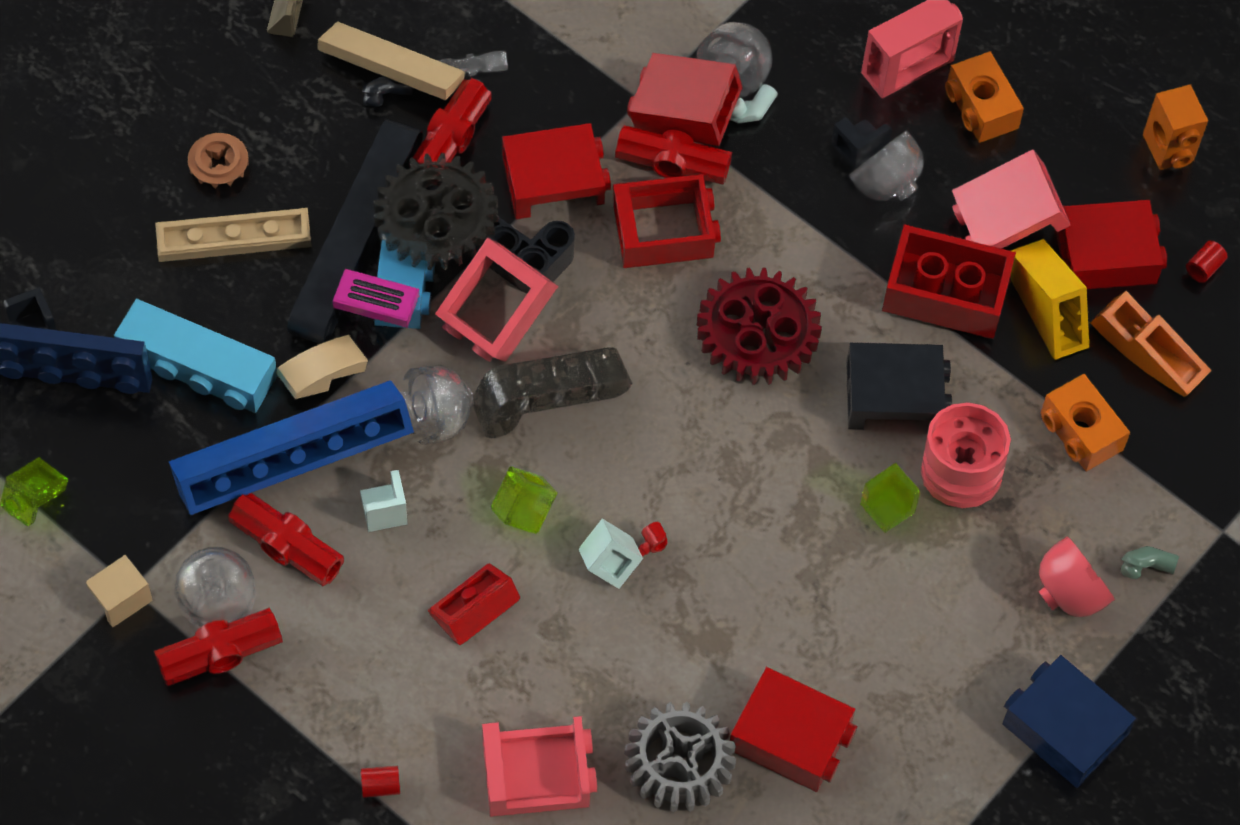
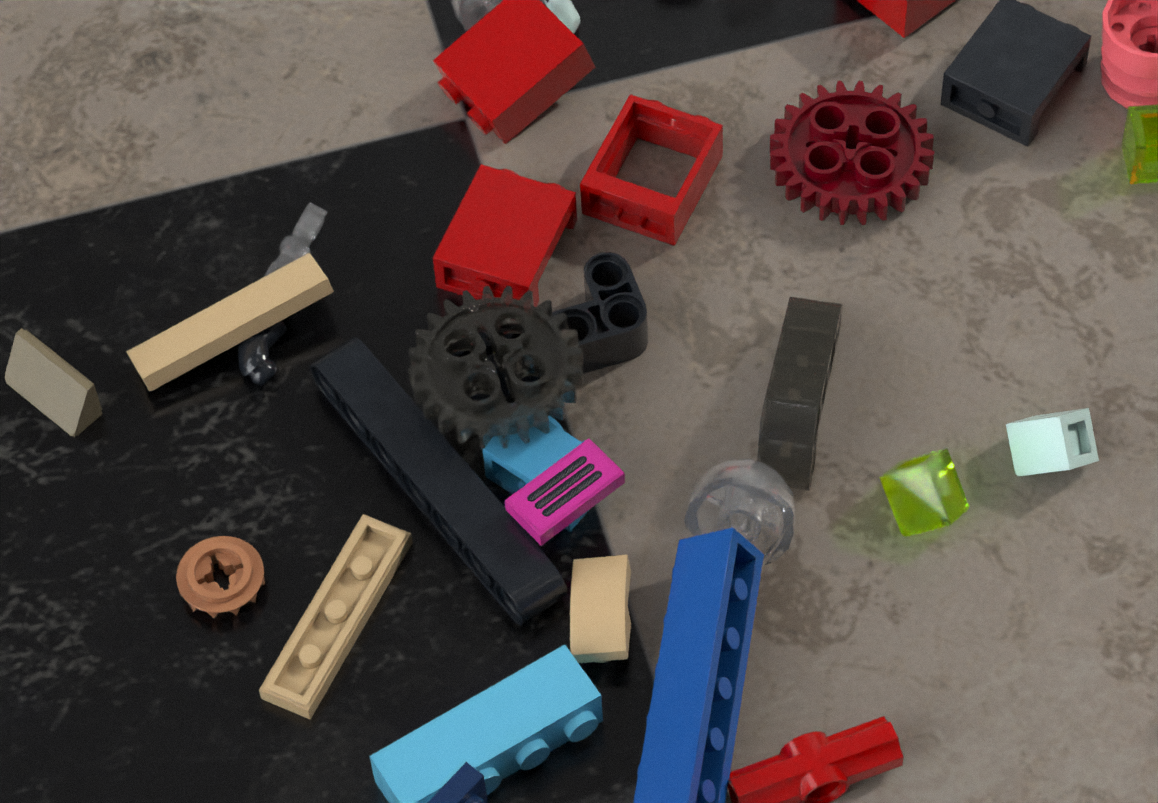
camera: 50 degrees left, 5 degrees down
(385, 505) = (834, 635): light aqua panel -> none
(454, 126) = (369, 308): red piece -> none
(475, 603) = (1022, 617): red slope -> none
(520, 321) = (633, 324): coral window -> none
(654, 538) = (1055, 390): red hand -> none
(673, 154) = (569, 118): red piece -> none

